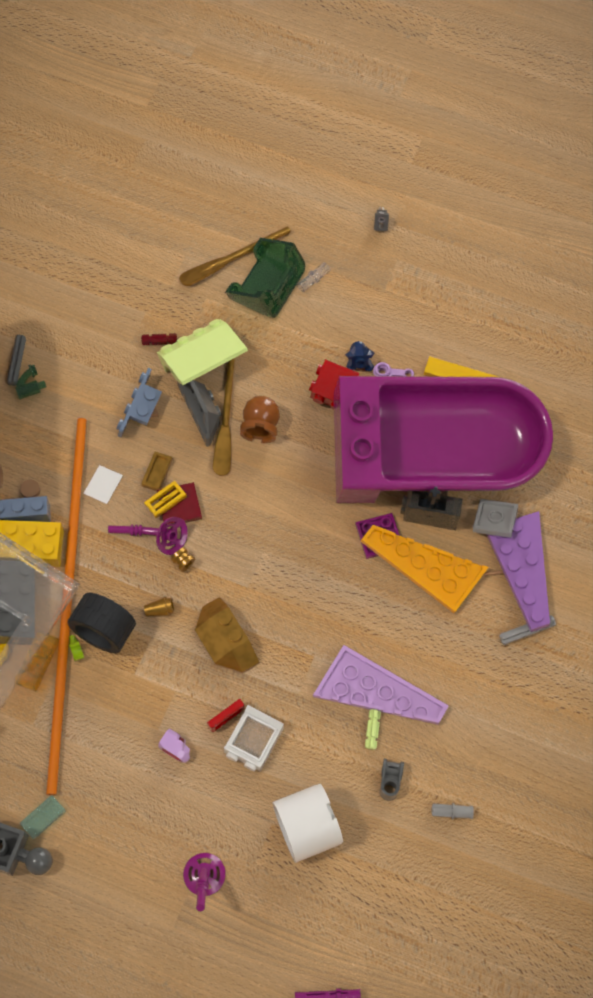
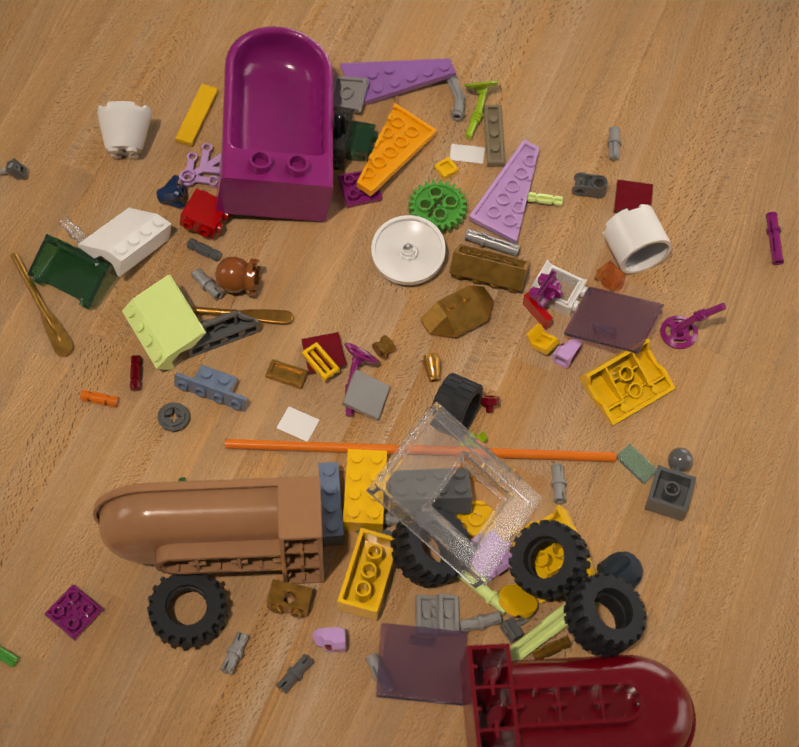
camera: 90 degrees left, 5 degrees down
(21, 732) = (558, 483): none -> light grey pin
(105, 368) = (167, 411): none -> dark grey gear
(118, 664) = (490, 401): none -> dark red tile
(127, 542) = (365, 395): none -> light grey tile
(132, 311) = (99, 398): none -> orange axle
(138, 809) = (626, 383): none -> yellow piece
(189, 719) = (541, 340): none -> yellow bracket
(208, 795) = (613, 319): none -> container
(239, 720) = (549, 289): none -> magenta hips
(262, 390) = (207, 284): none -> light grey pin
(266, 796) = (610, 276): none -> clear orange brick
(280, 666) = (489, 267): none -> pearl gold slope
(295, 581) = (408, 250): none -> white dish
(297, 390) = (203, 249): none -> dark grey axle
(300, 317) = (128, 238): none -> white piece
(320, 649) = (492, 242): none -> light grey pin
(366, 599) = (451, 214): none -> bright green gear
(378, 830) = (631, 195): none -> dark red tile
(409, 624) = (446, 168): none -> yellow tile
(428, 304) = (124, 128): none -> white cone
(431, 647) = (467, 153): none -> white sticker
(435, 533) = (361, 141): none -> clear green hinge
(456, 675) = (494, 136): none -> dark tan tile
(487, 635) = (457, 112): none -> light grey pin
(514, 659) = (476, 116): none -> lime dish

